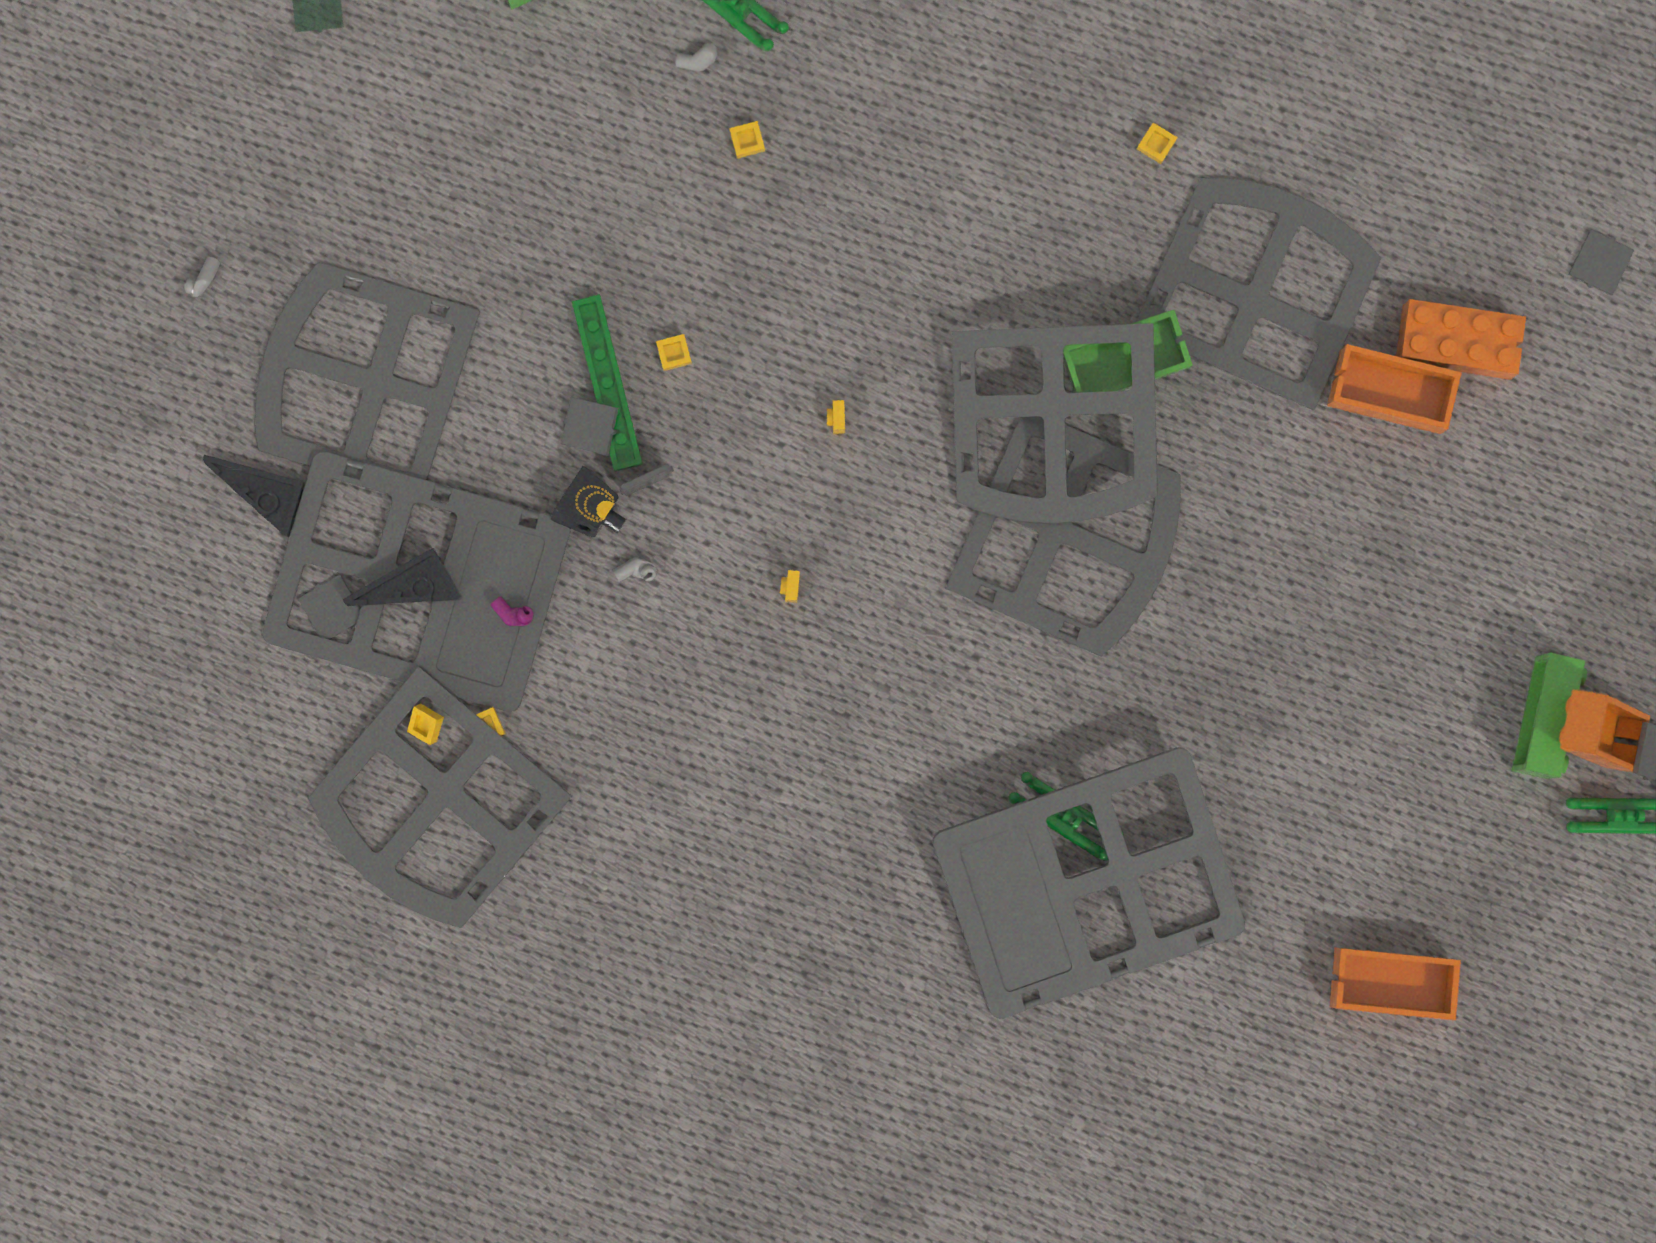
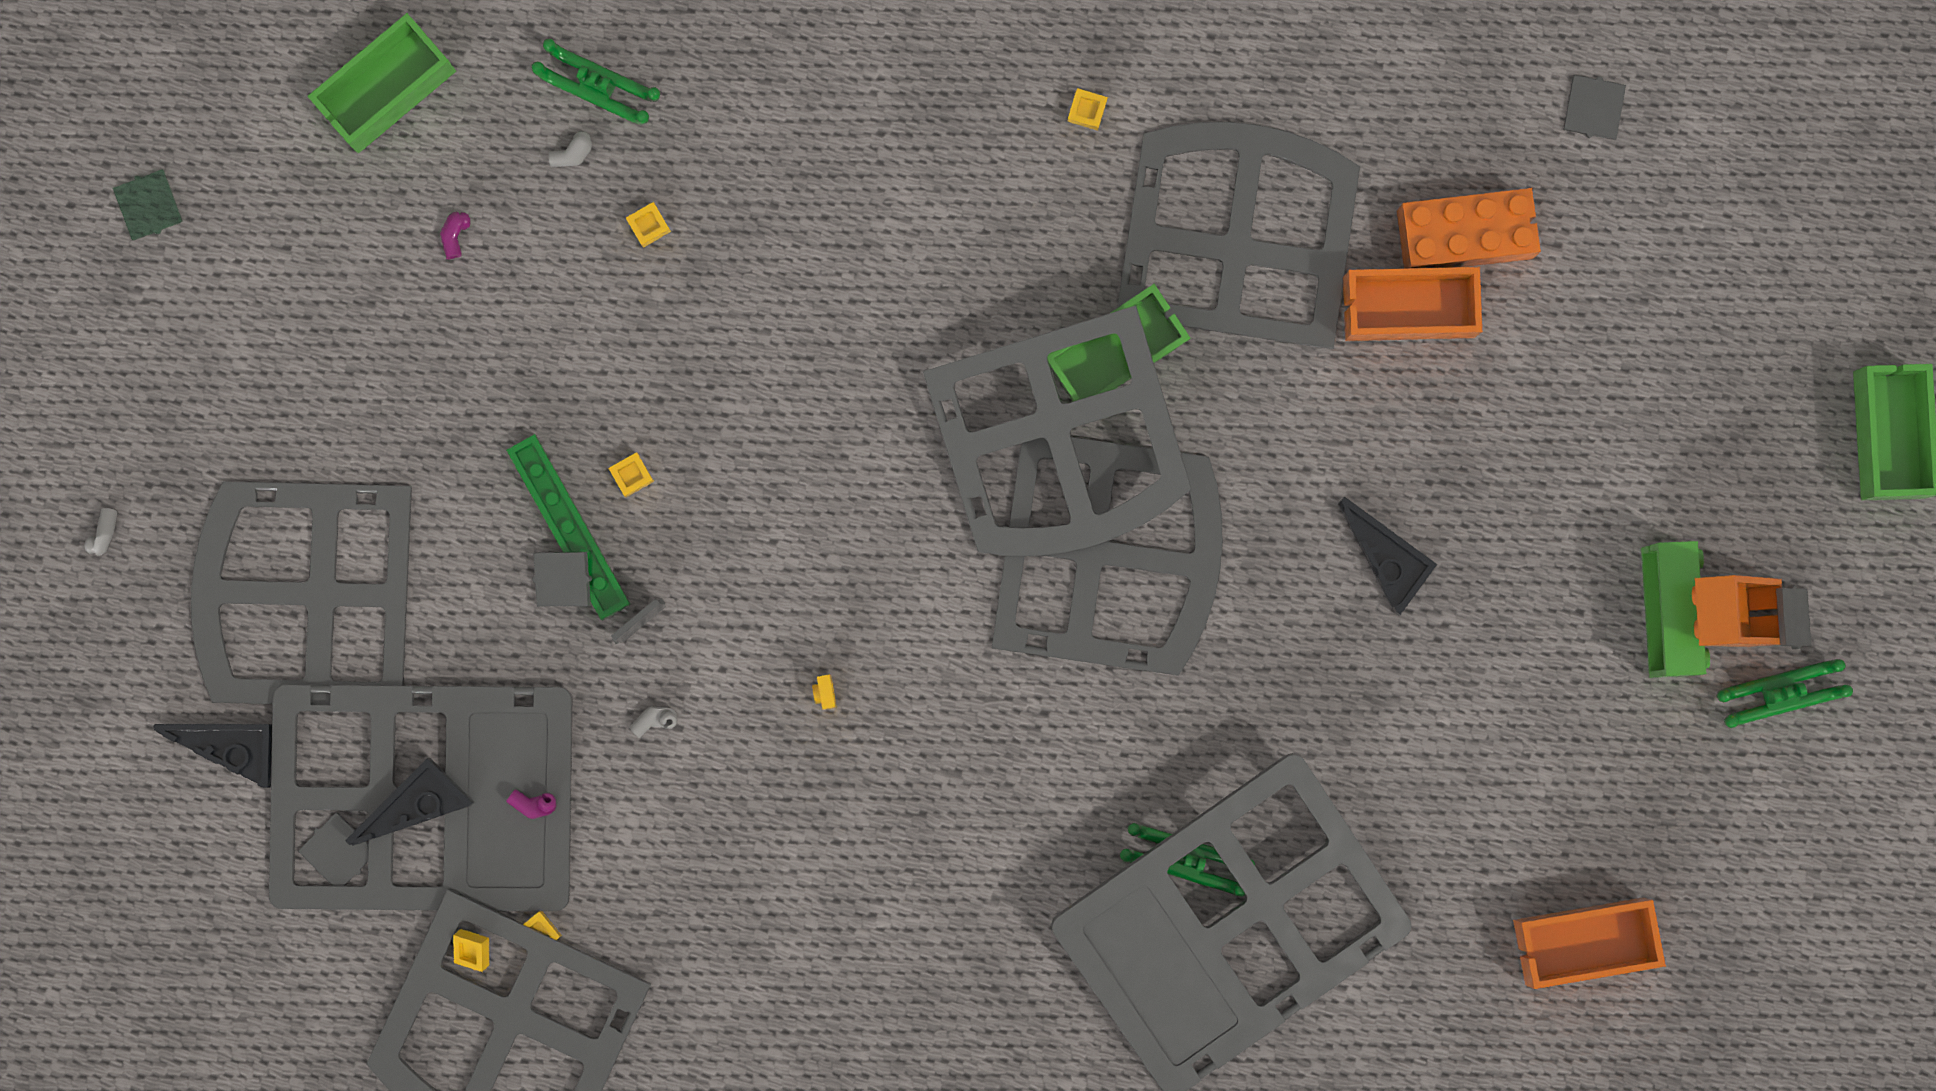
camera: 10 degrees left, 0 degrees up
(573, 99) = (449, 233): none -> magenta arm
(588, 506) = (583, 666): black torso -> none
(836, 416) = (824, 496): yellow plate -> none
(1316, 609) = (1394, 561): none -> black wing

